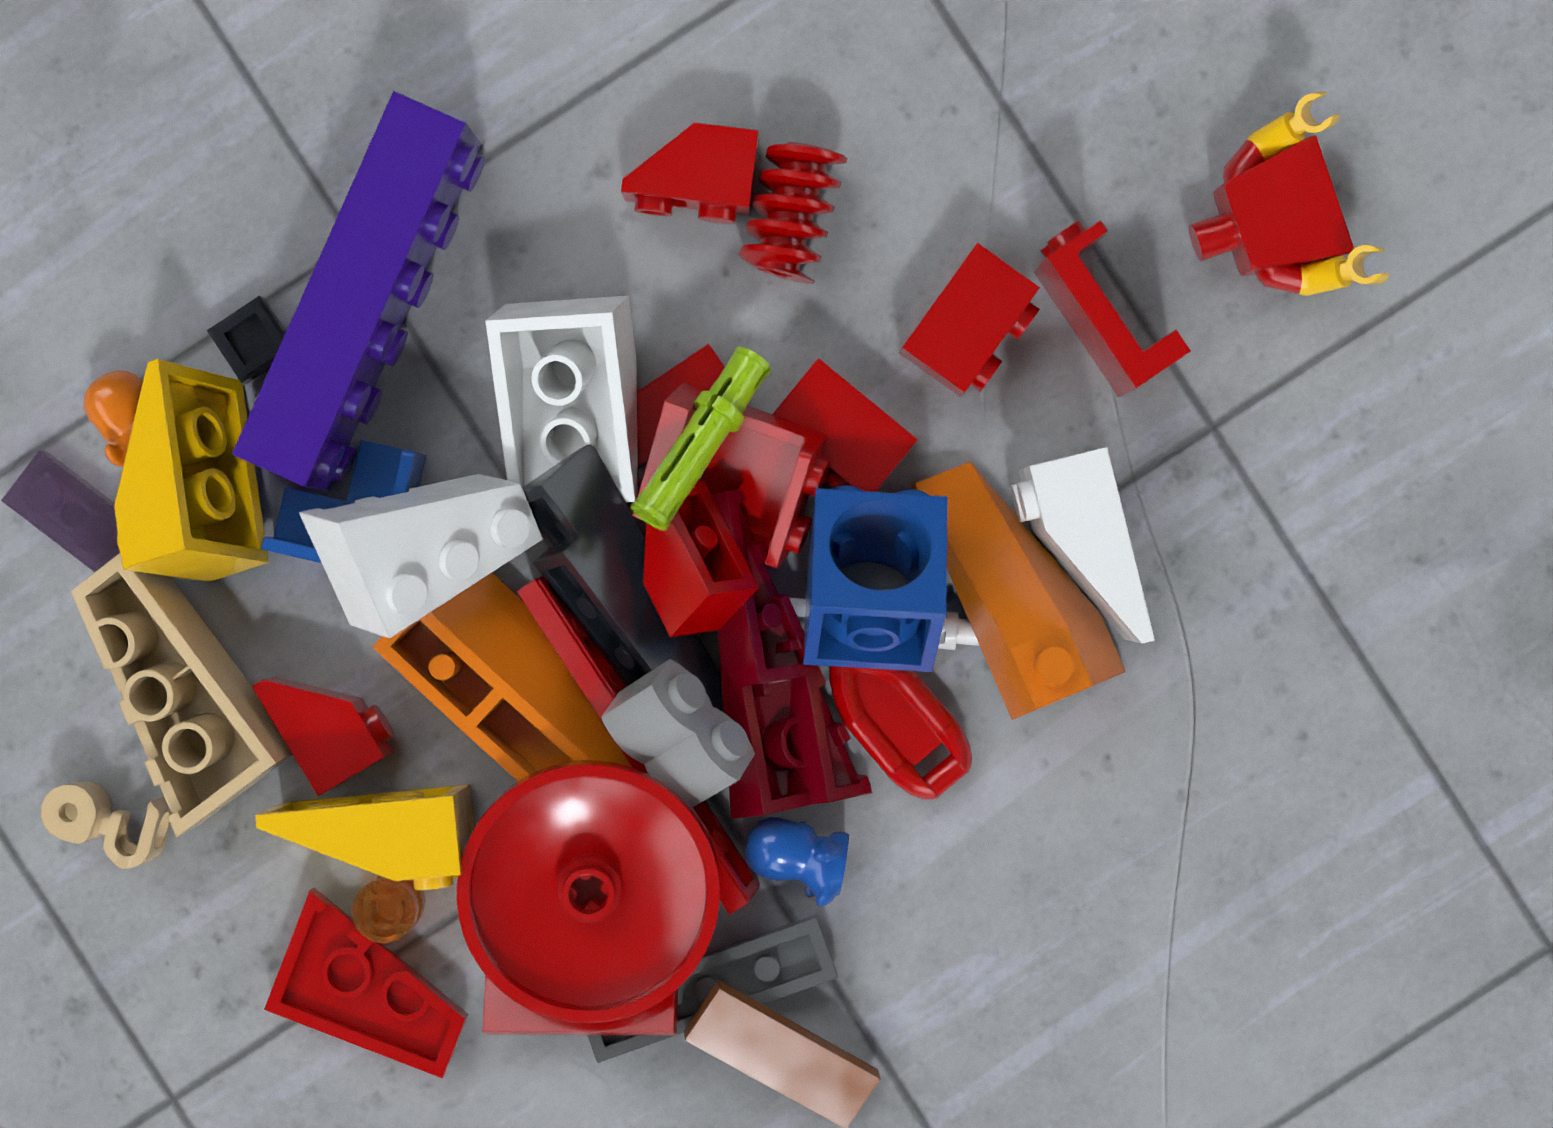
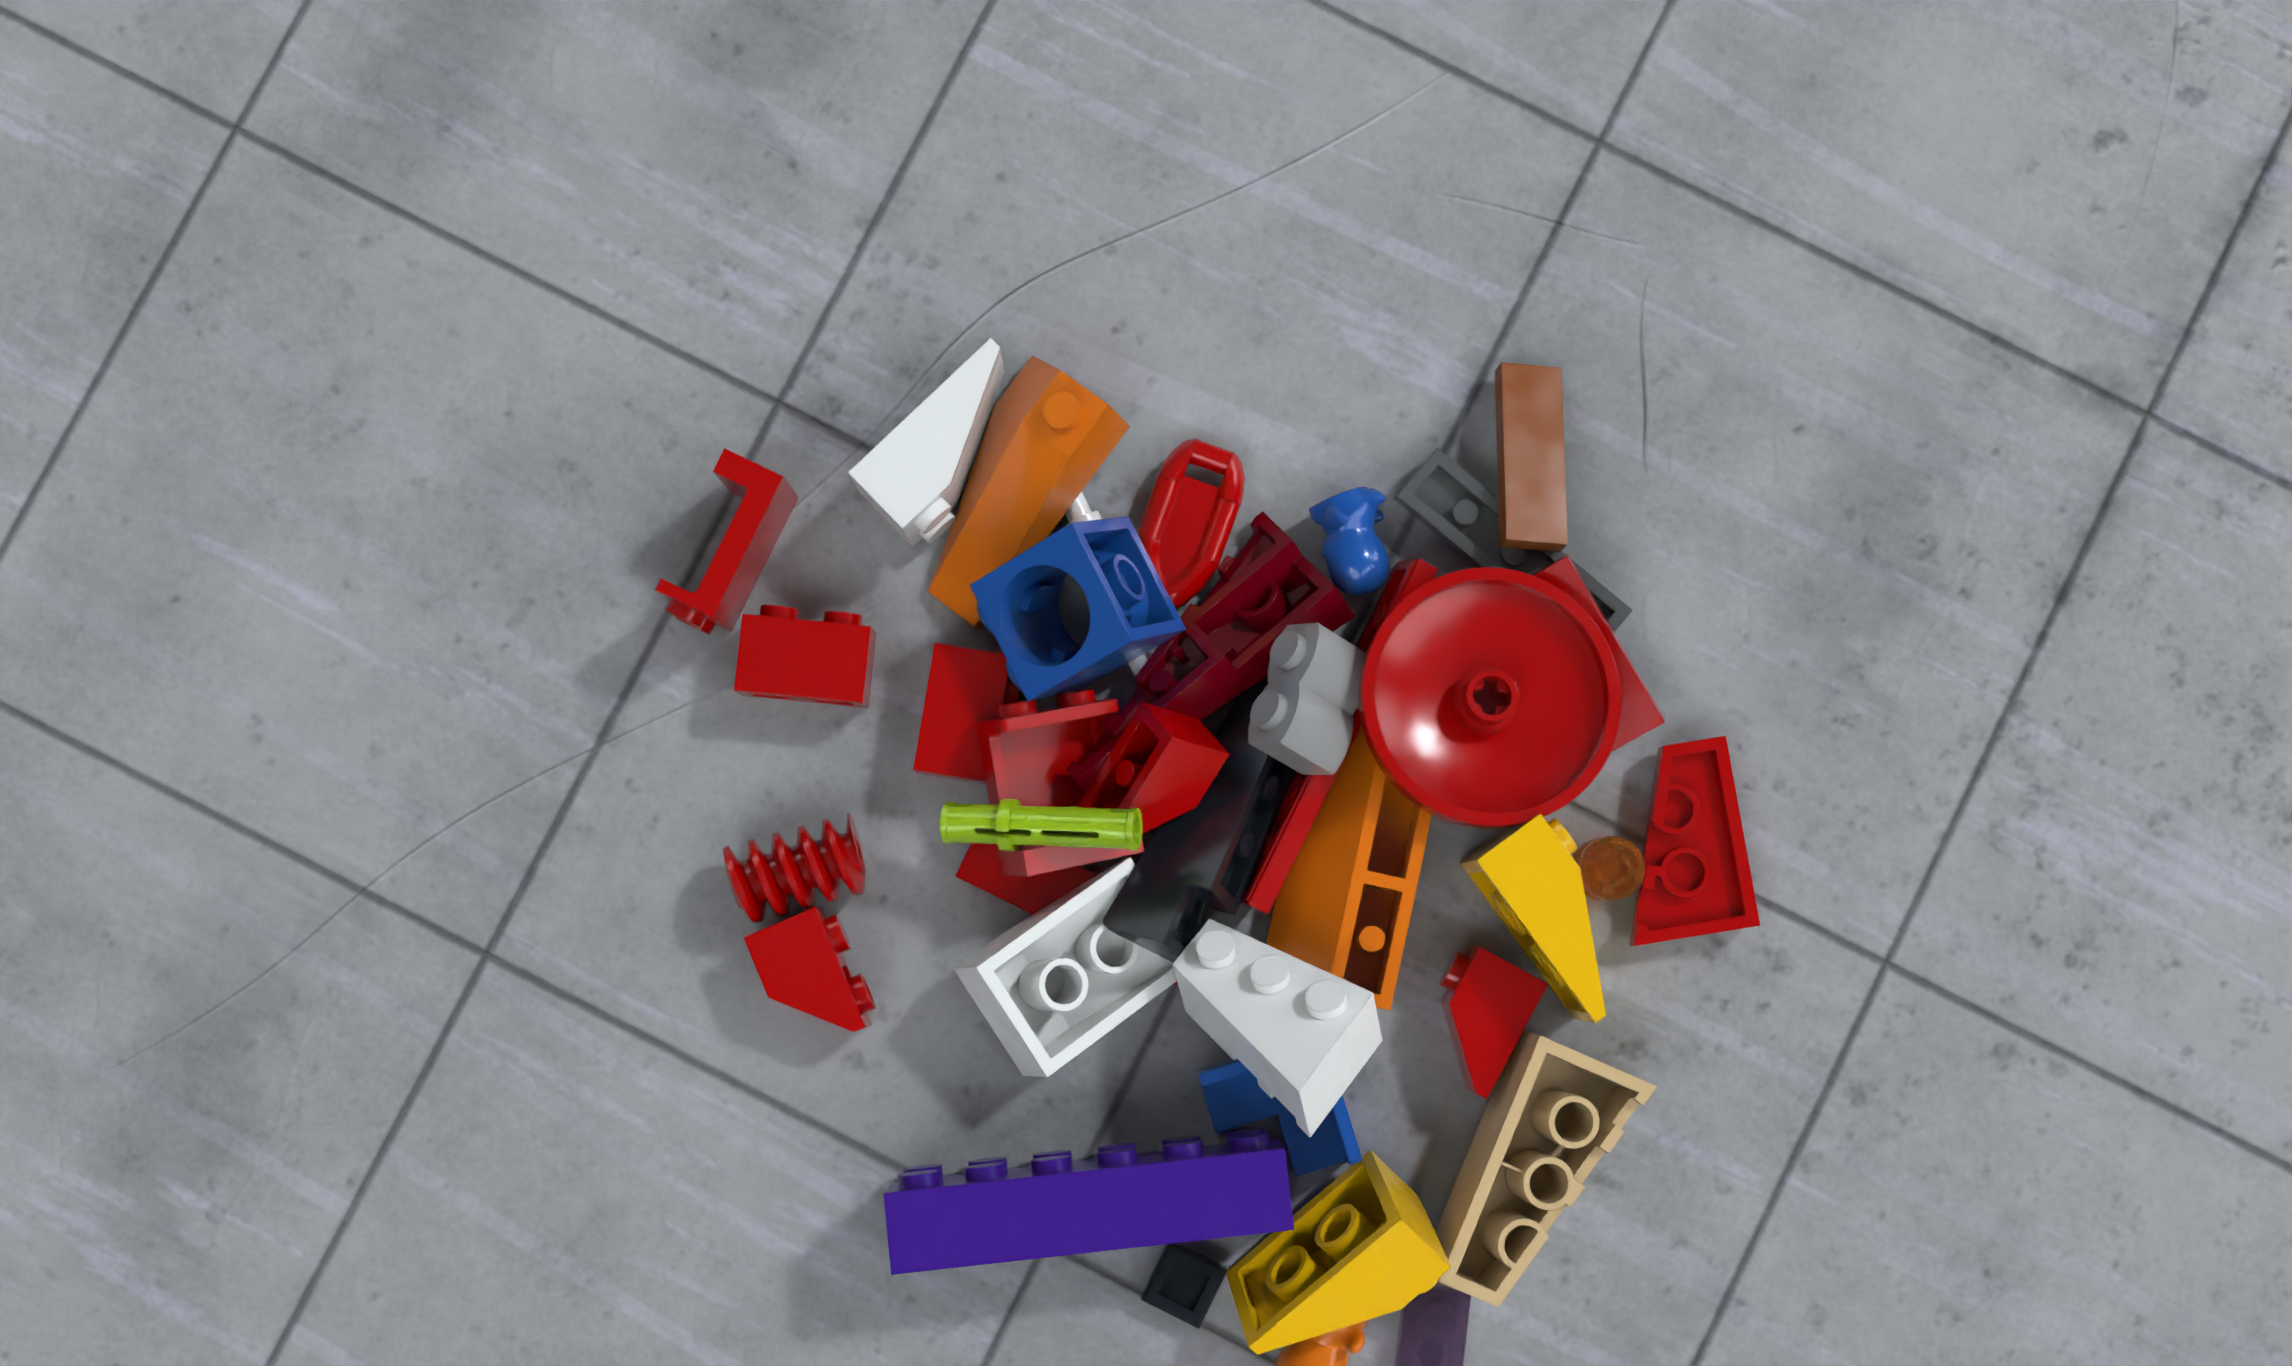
camera: 135 degrees left, 5 degrees down
(83, 813) = (1685, 1188): tan leg -> none
(1284, 211) = (557, 444): red torso -> none

